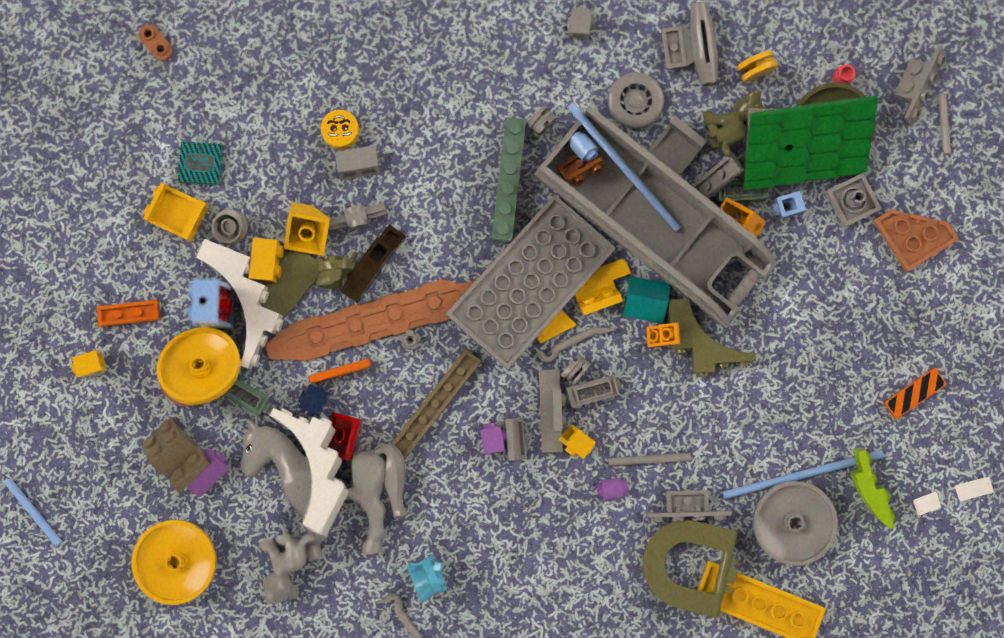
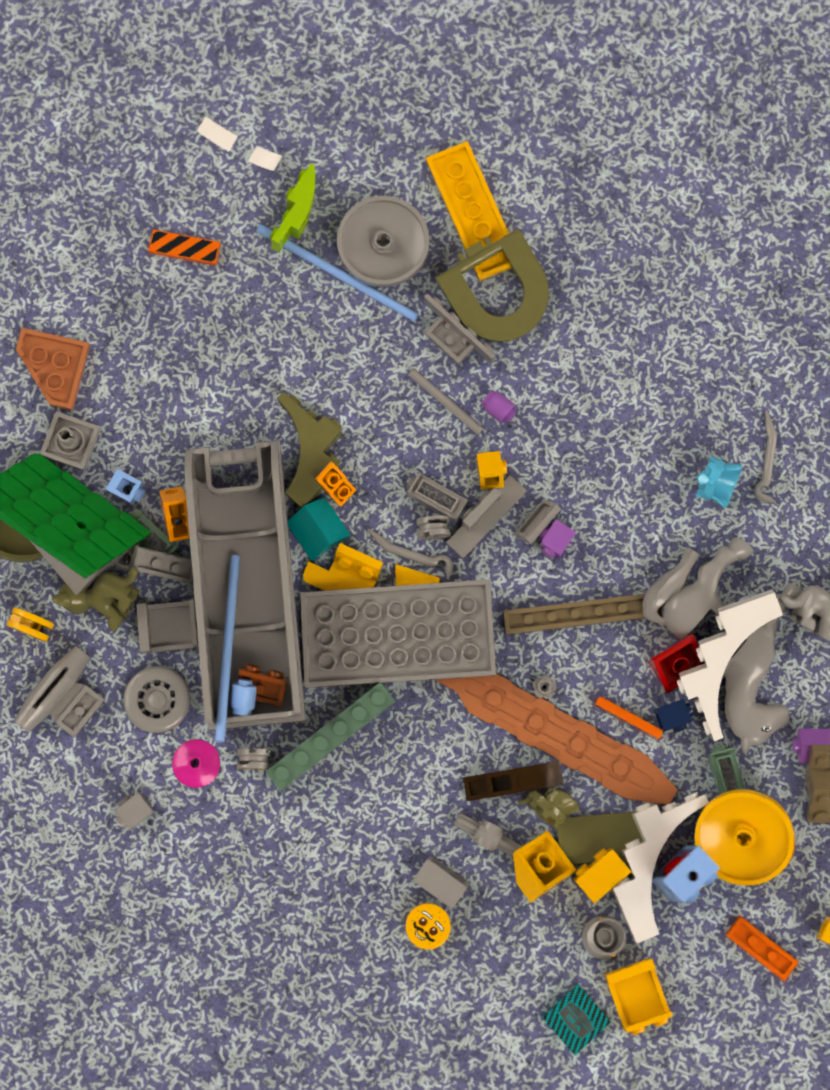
camera: 135 degrees left, 5 degrees down
(566, 94) = (208, 766): none -> dark pink dish

